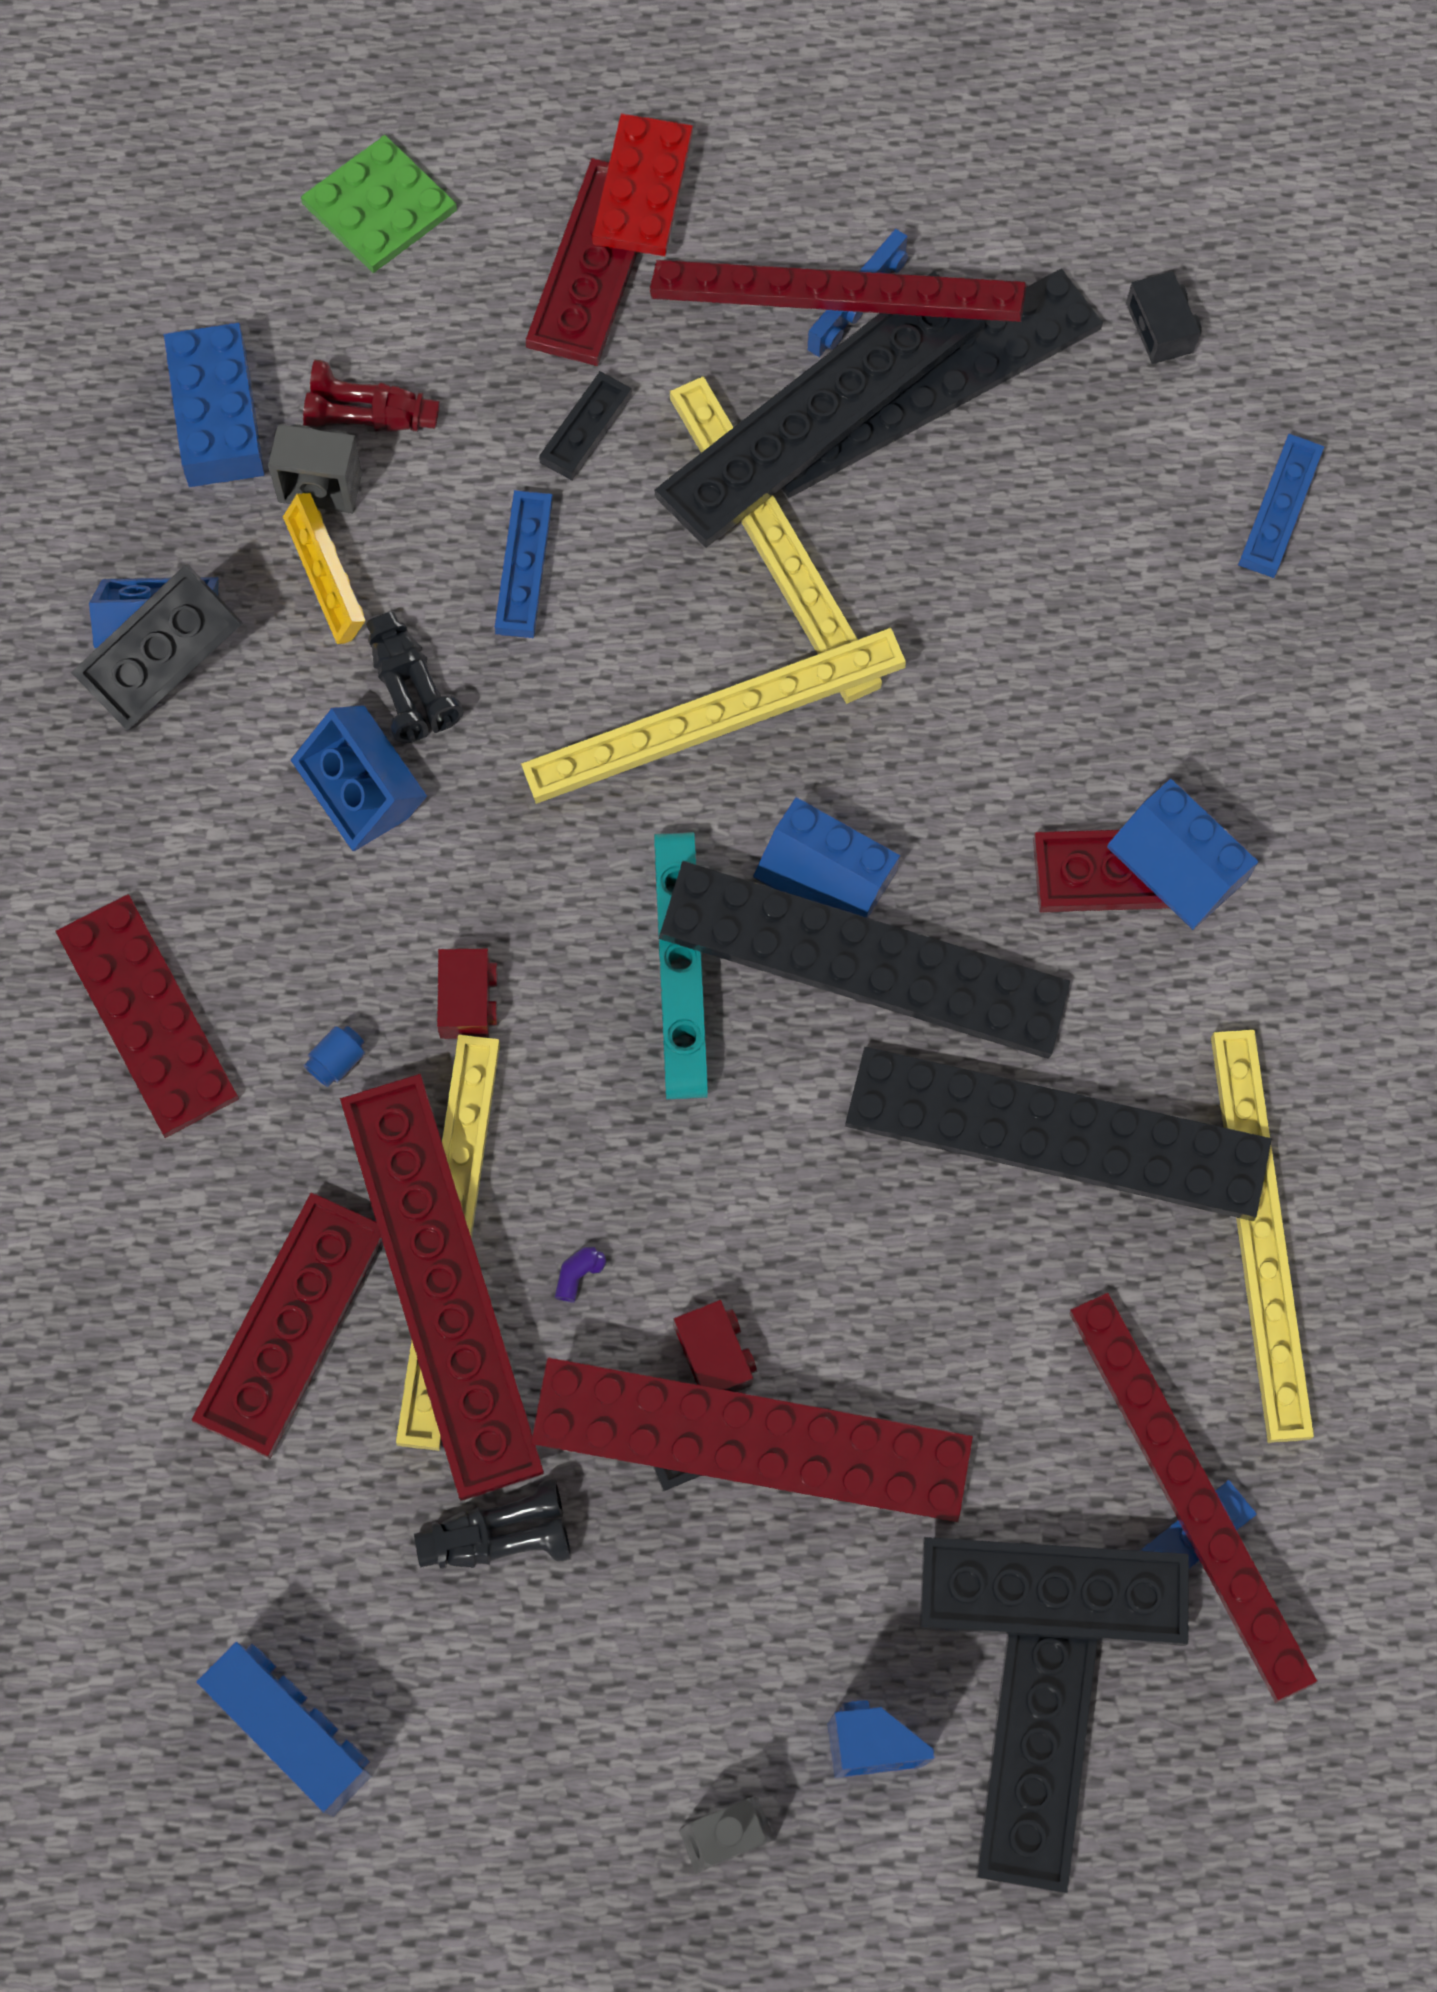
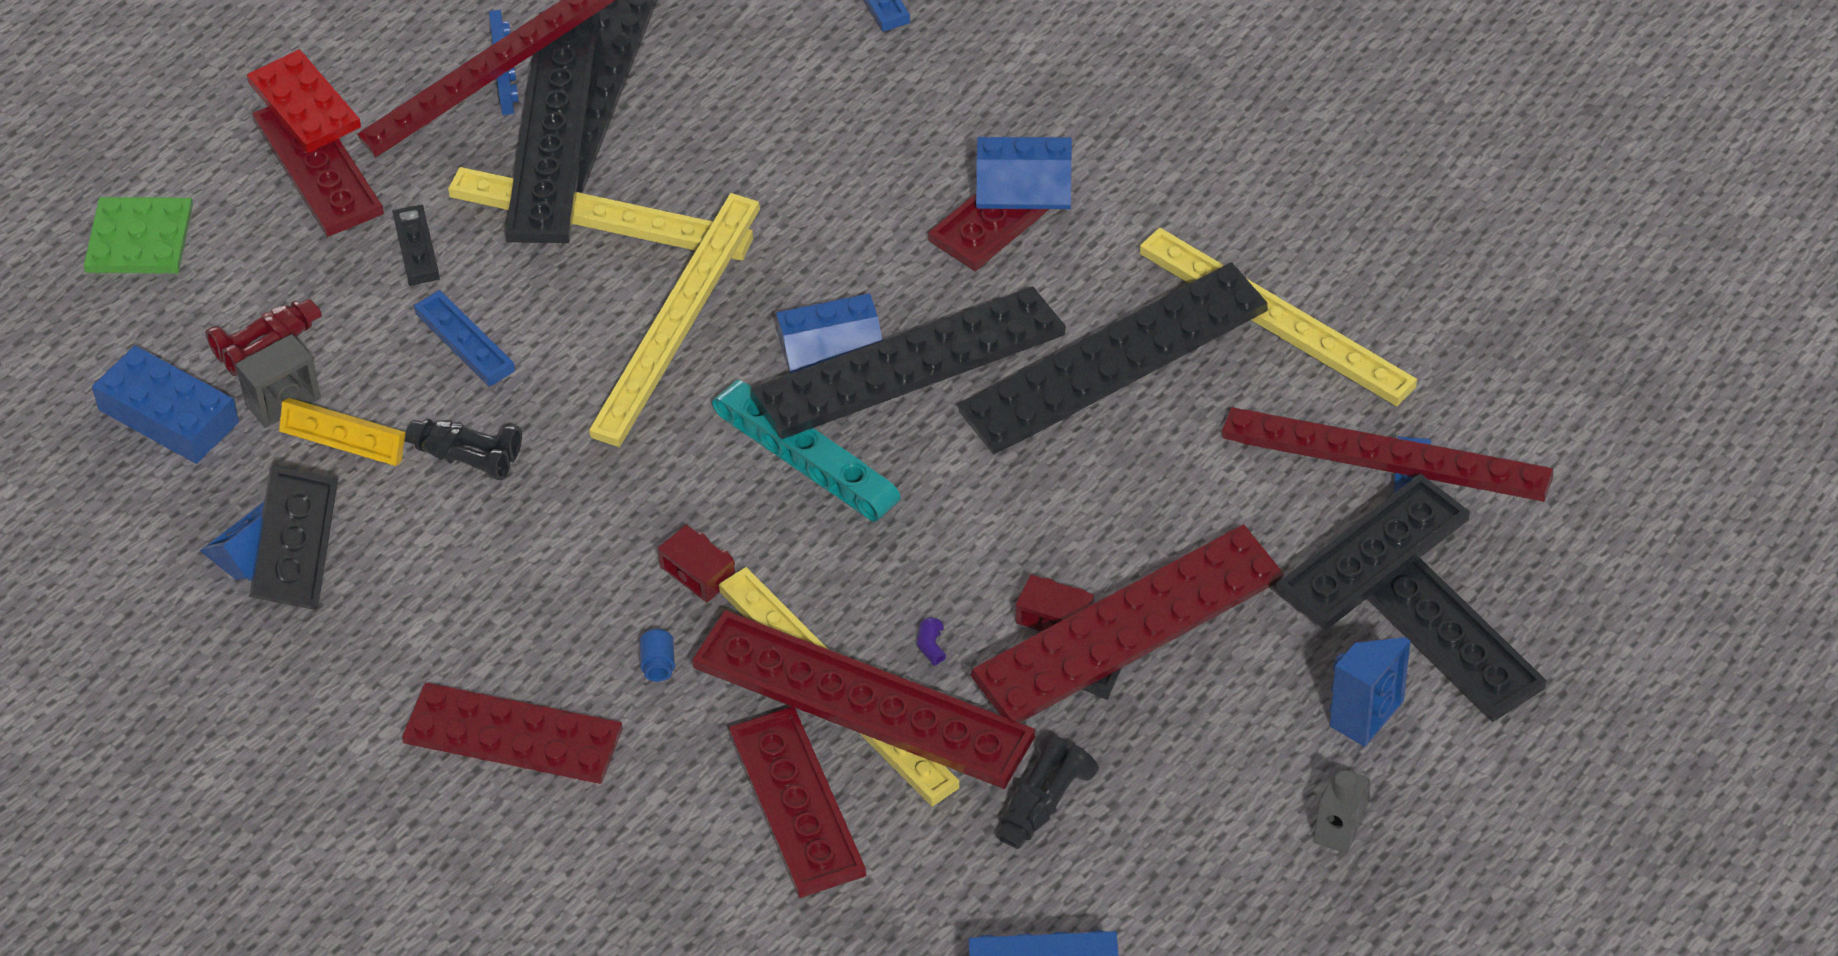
camera: 40 degrees left, 20 degrees down
(357, 775) = (495, 515): blue slope -> none

